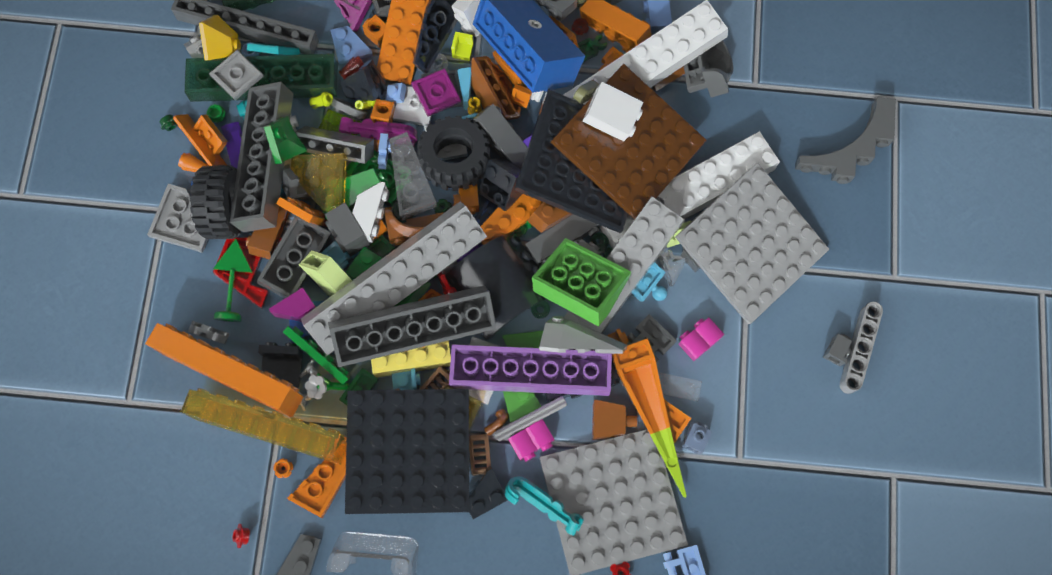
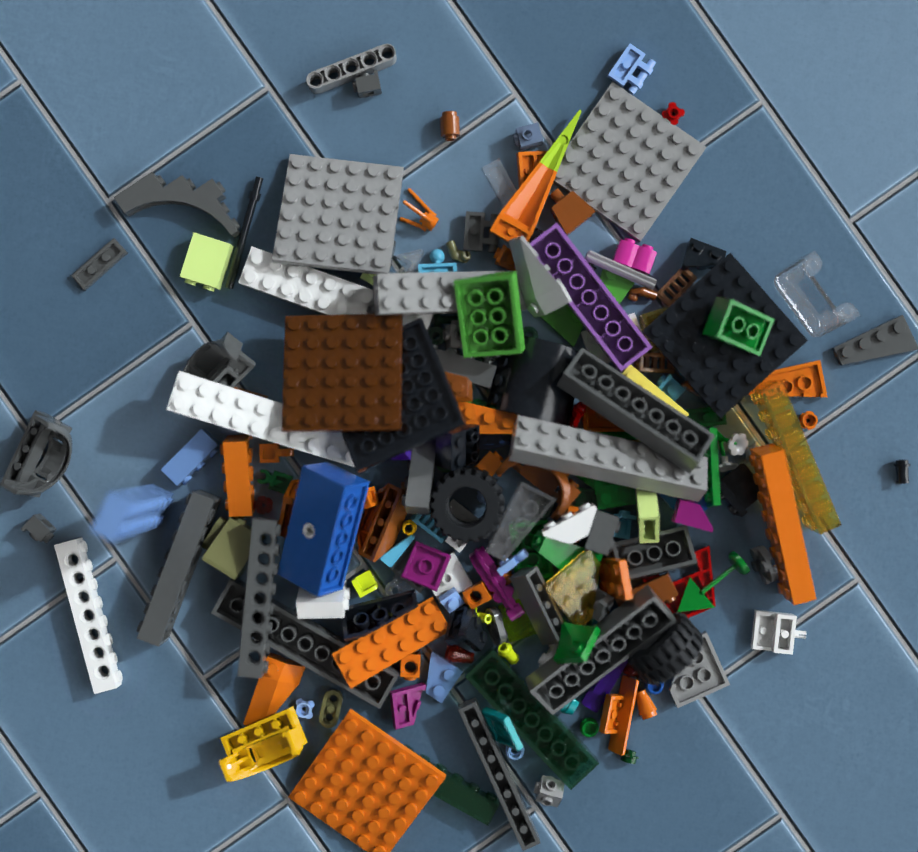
camera: 125 degrees left, 15 degrees up
(151, 301) = (775, 632): none -> white plate
(174, 508) = (902, 471): none -> black pin
(218, 38) = (533, 778): yellow slope -> none
(236, 75) = (550, 735): light grey tile -> none
(241, 535) = (880, 406): red plate -> none
(405, 462) = (738, 325): none -> green slope
(442, 202) = (507, 478): dark green plate -> none
(522, 487) = (671, 196): teal piece -> none
(585, 91) = (329, 440): olive beam -> none
(613, 112) = (335, 400): white brick -> none
(648, 308) = (457, 255): none -> olive arm
(693, 306) = (428, 219): none -> orange plant
(701, 338) = (448, 194): dark pink brick -> none
(755, 384) = (449, 125): none -> dark orange brick
(793, 126) = (206, 262): none -> yellowish green brick
(815, 197) = (254, 197): none -> black bar
(851, 57) = (99, 264): none -> dark grey tile

